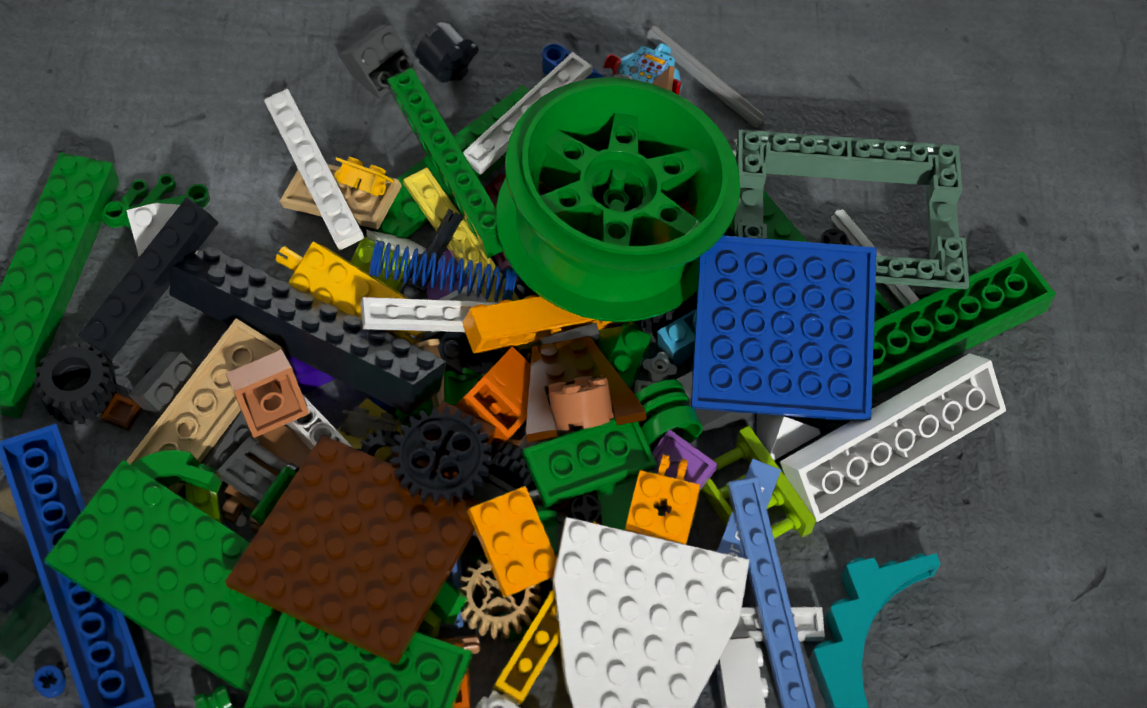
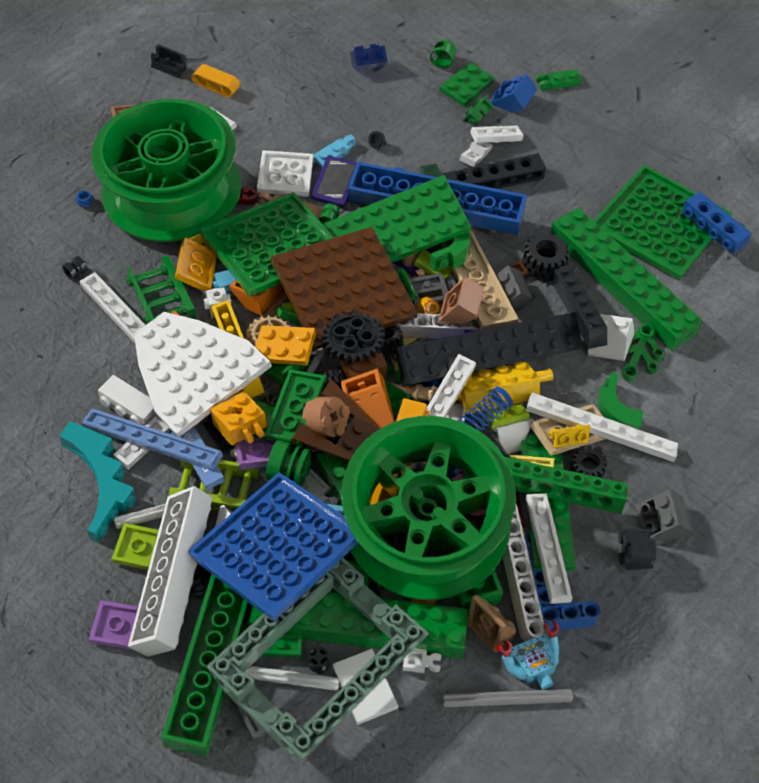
camera: 130 degrees right, 5 degrees down
(267, 185) = (613, 409): none -> green arch
(289, 447) = (427, 306): none -> light orange hat
(373, 148) = (592, 456): none -> black tyre
(812, 201) = (378, 701): none -> white tile
(856, 540) = (140, 516): none -> white axle
(896, 510) = (135, 546): none -> lime plate
(993, 453) = (113, 624): none -> medium lavender plate

